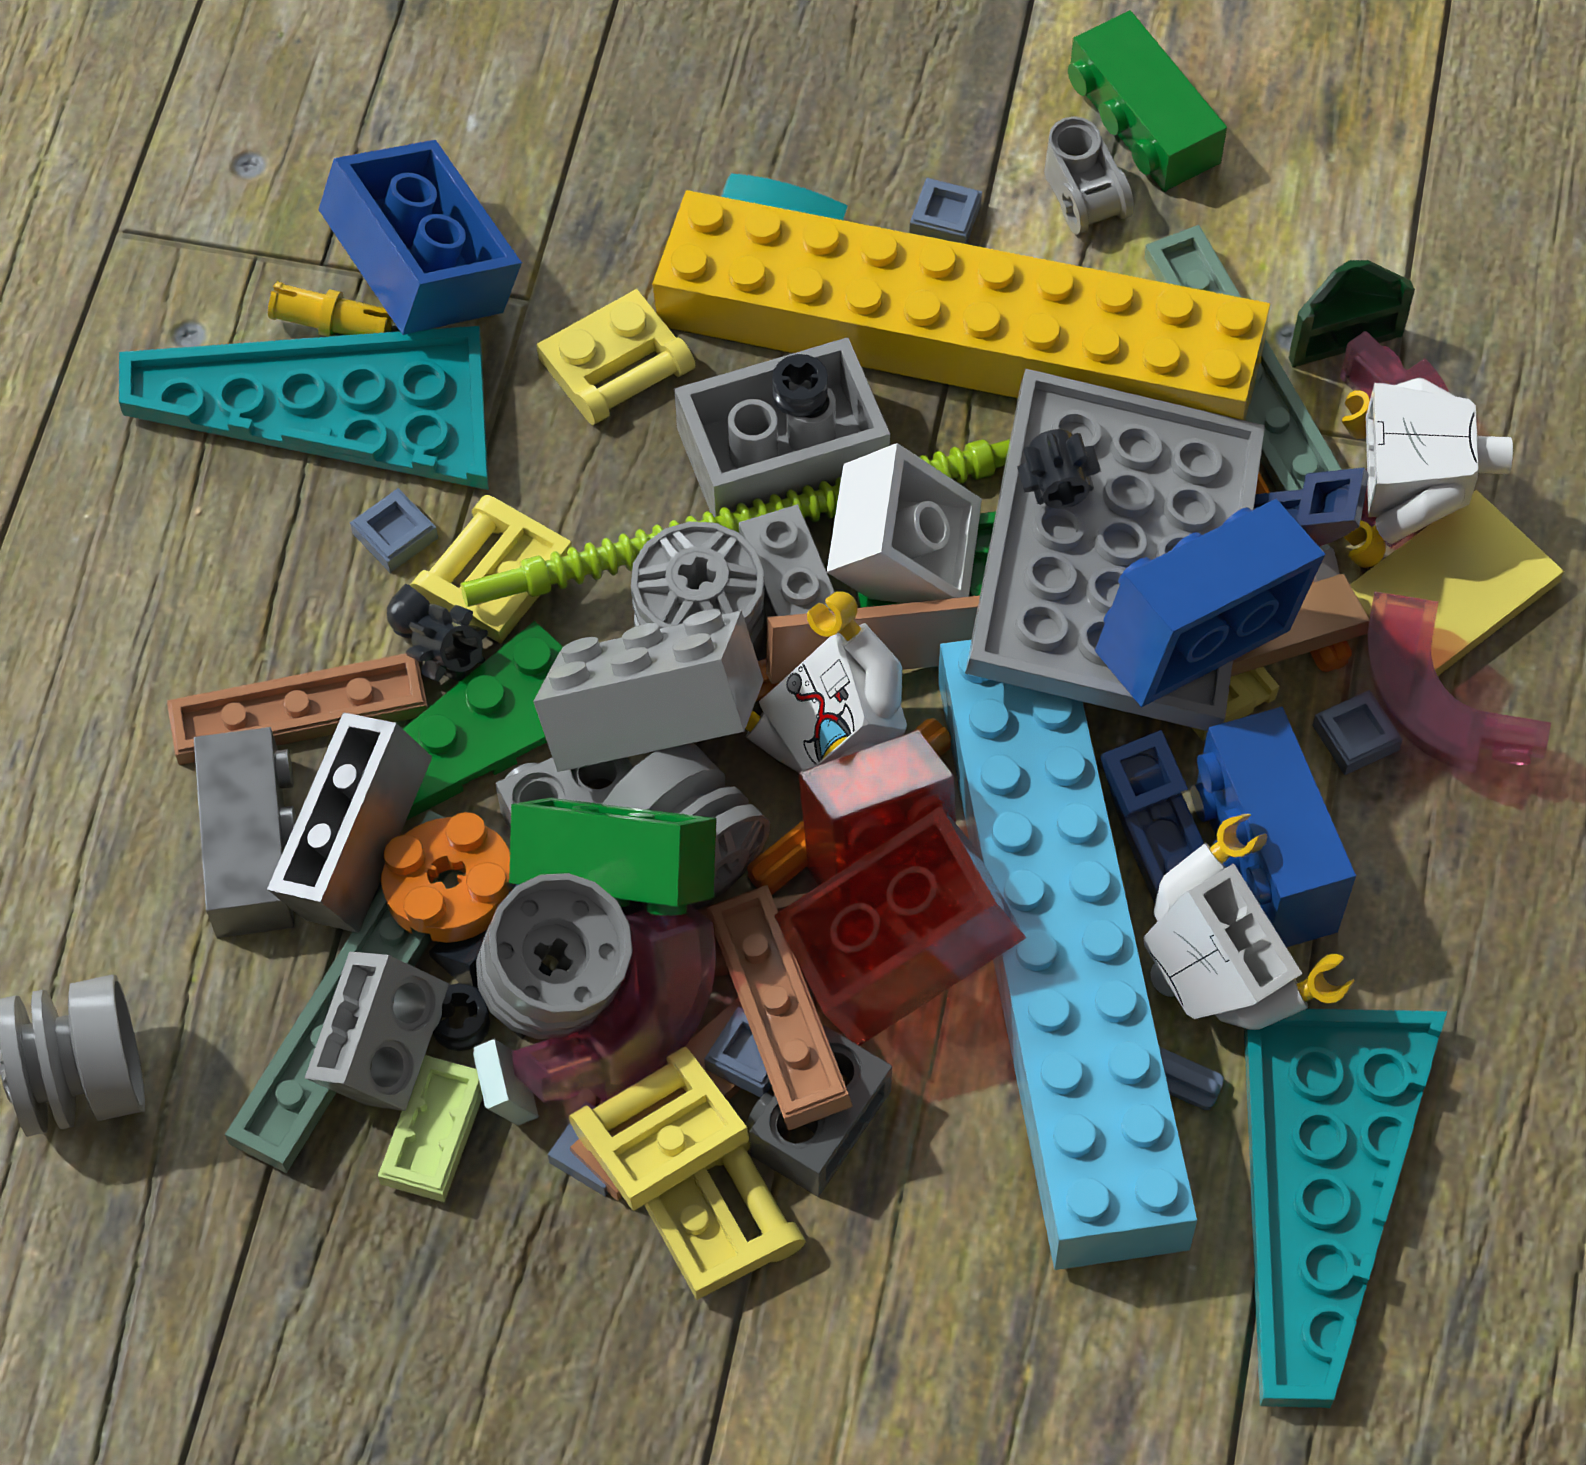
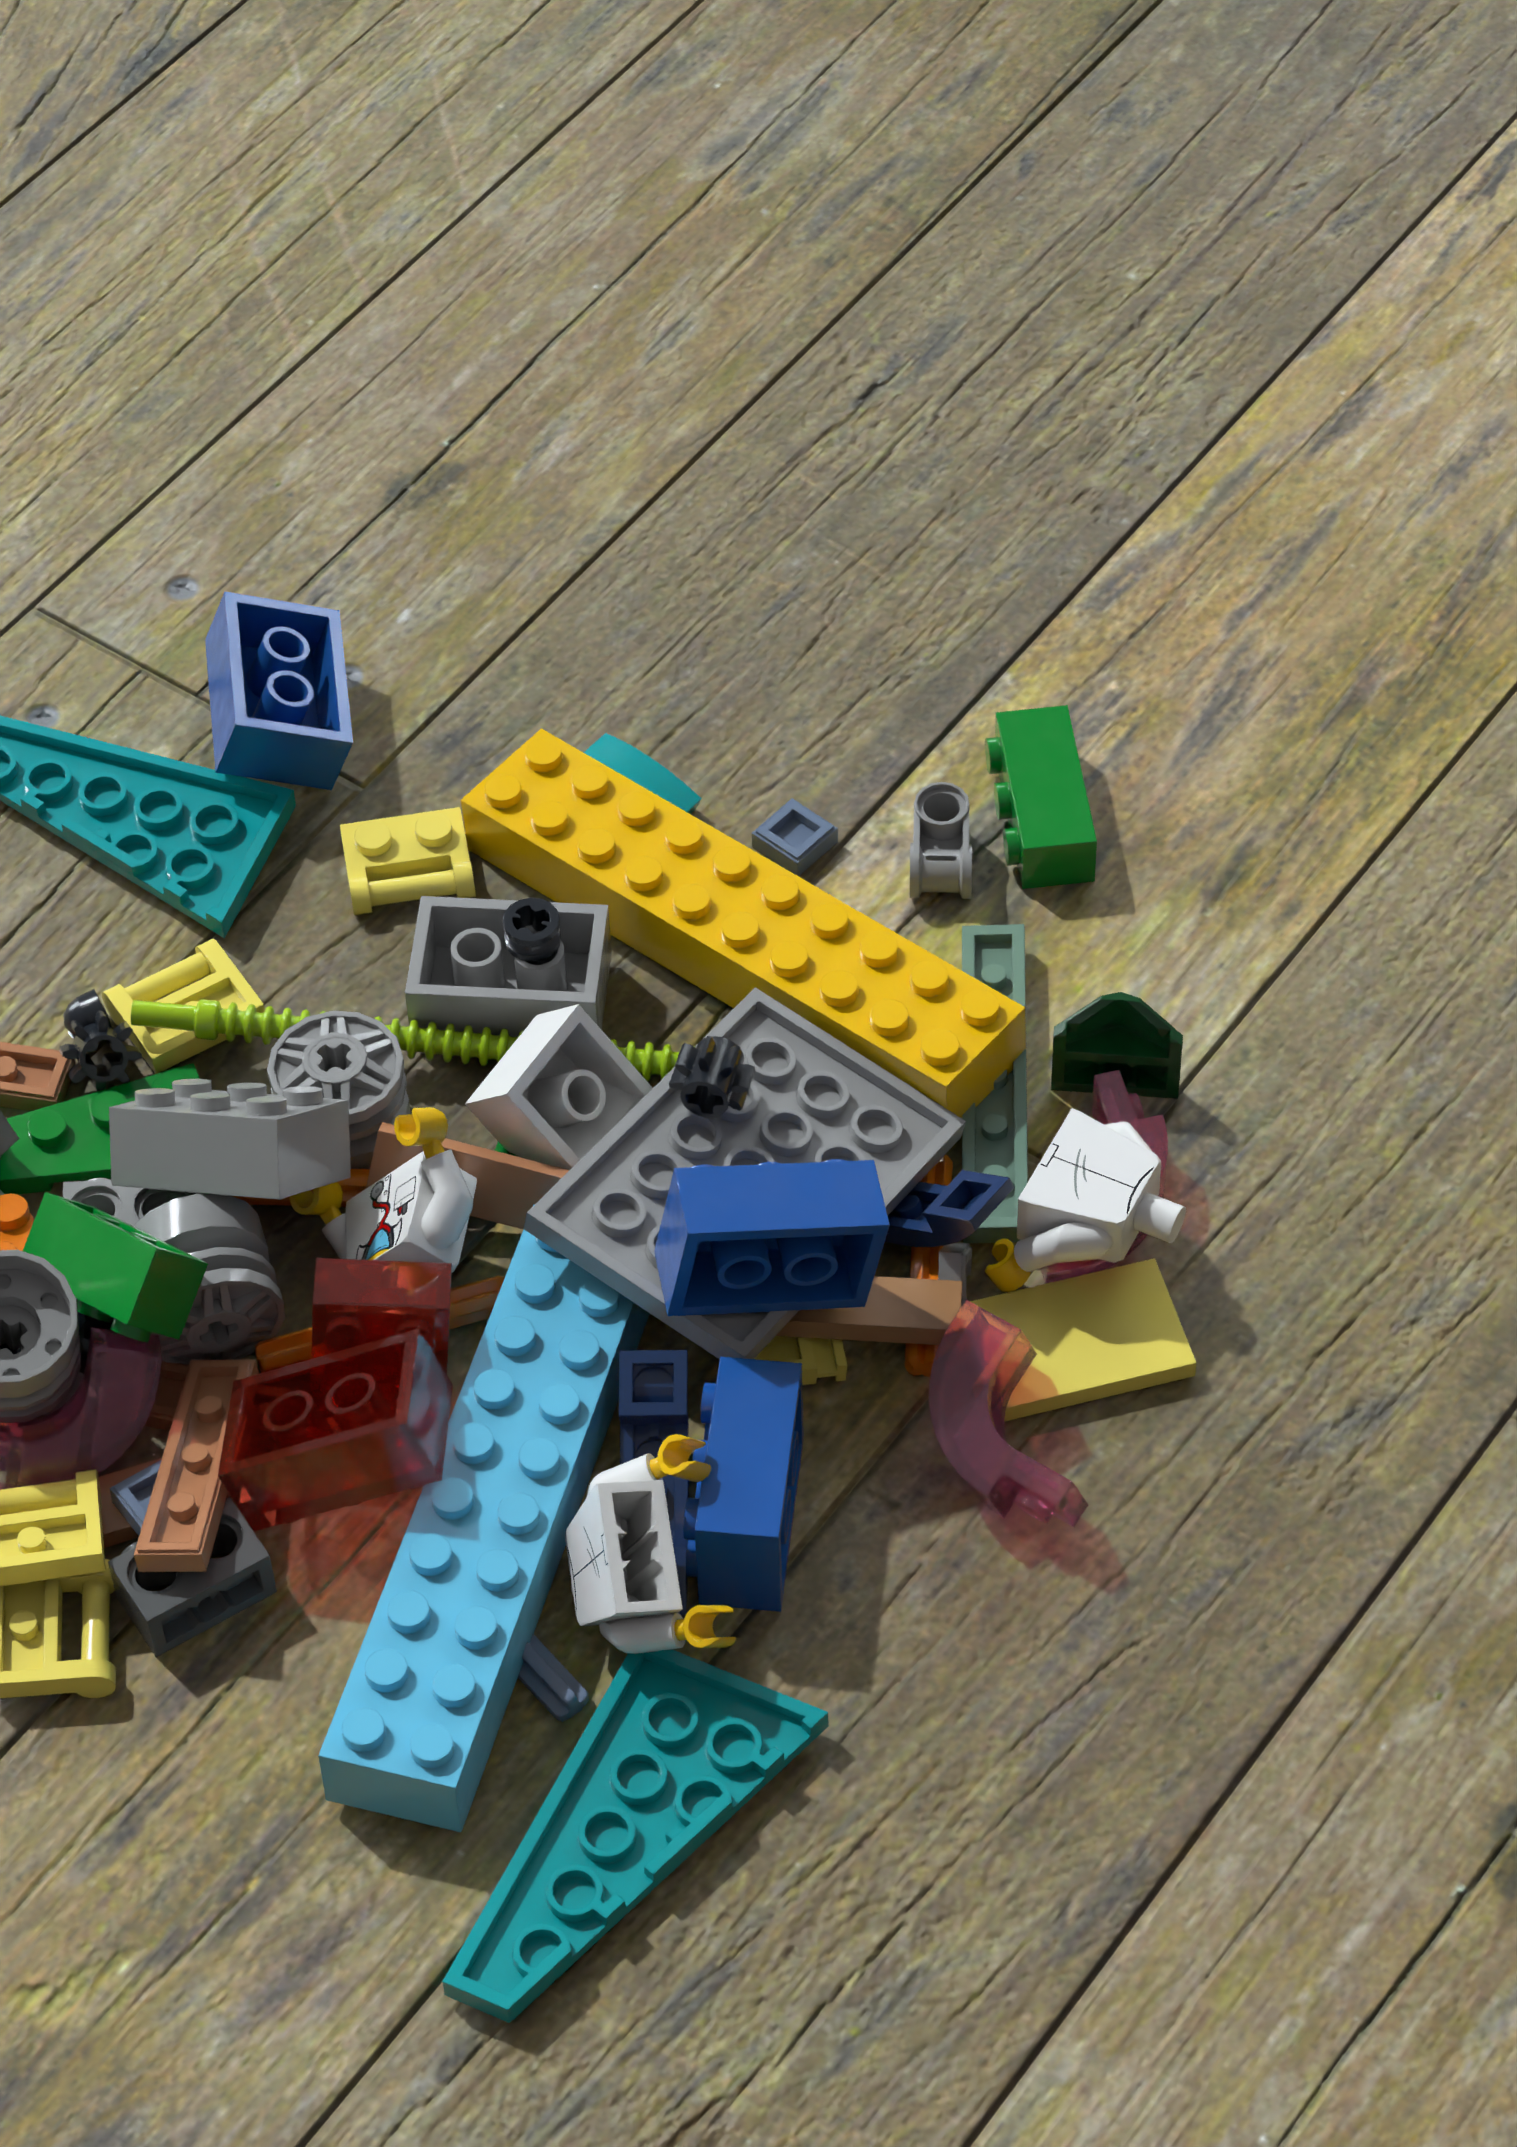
camera: 25 degrees right, 10 degrees down
(327, 311) = (168, 734): yellow pin -> none
(394, 530) = (119, 944): sand blue tile -> none
(790, 561) = (444, 1076): light grey brick -> none
(1357, 732) = (904, 1439): sand blue tile -> none

